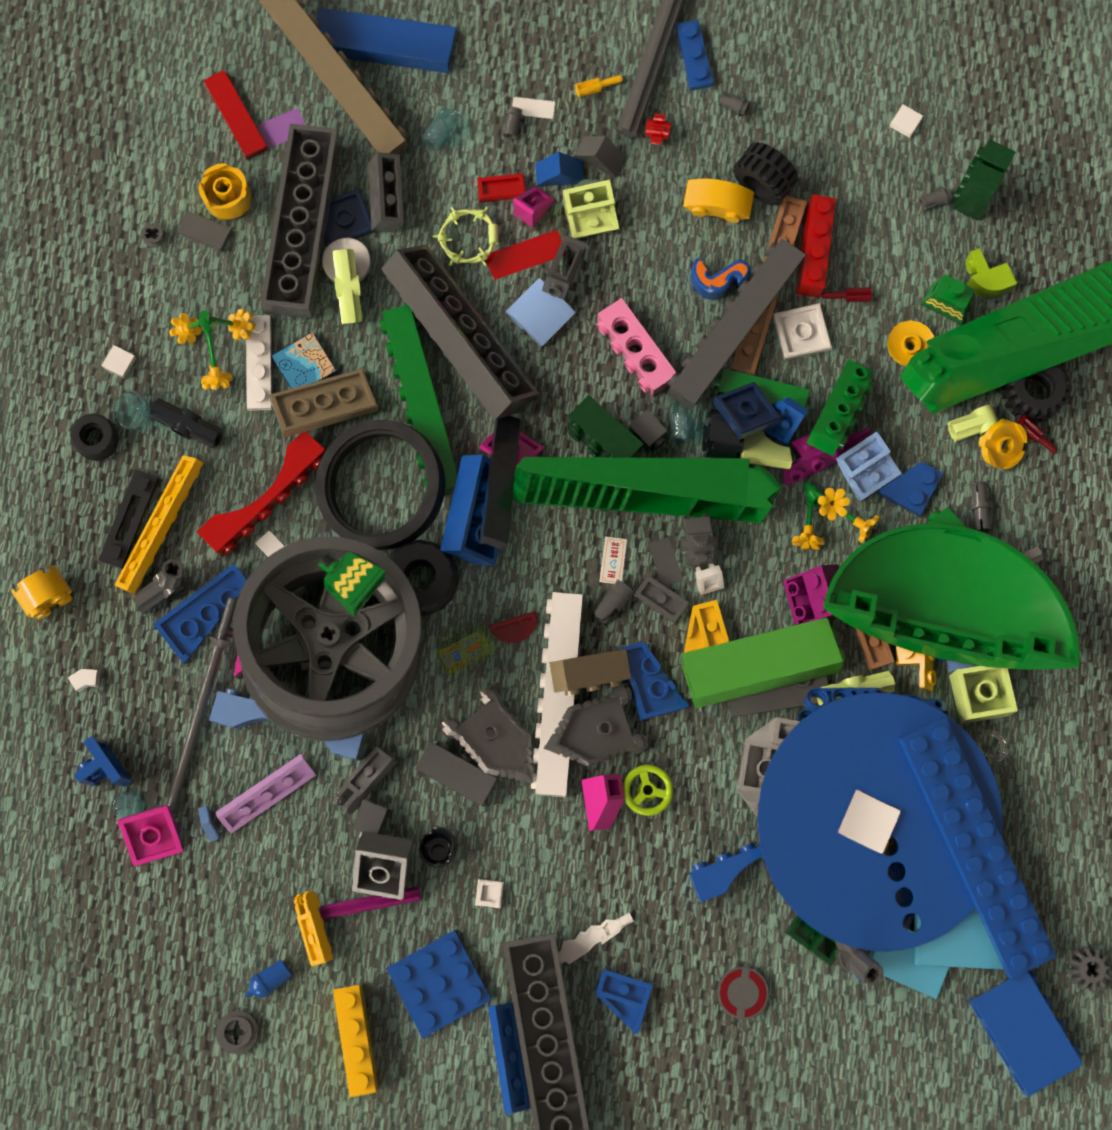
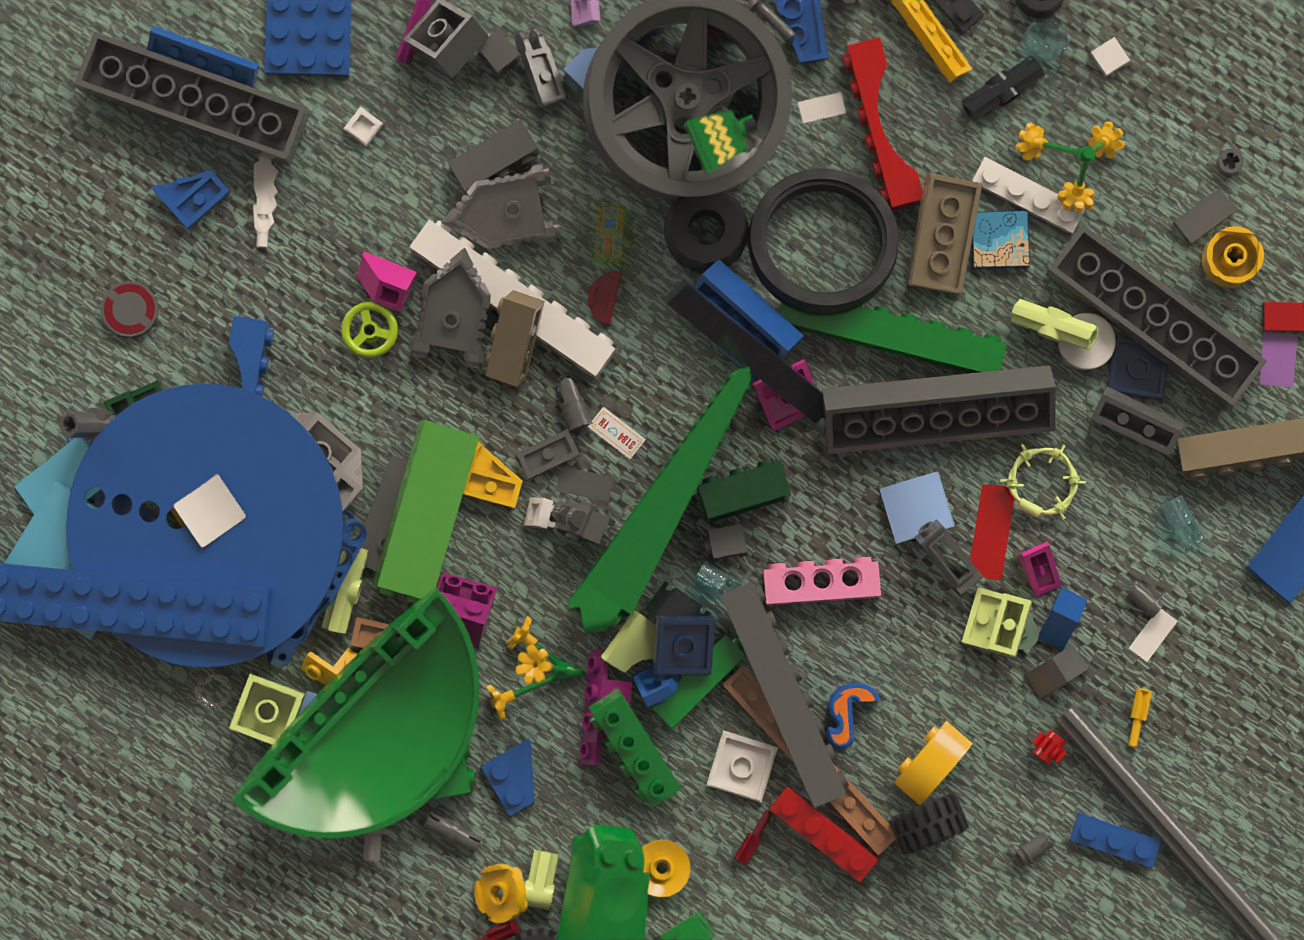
camera: 120 degrees right, 5 degrees up
(438, 847) = (433, 100): black hair -> none
(500, 187) = (1079, 548): red tile -> none
(649, 685) = (471, 393): blue wing -> none
(868, 466) = (559, 742): light blue slope -> none

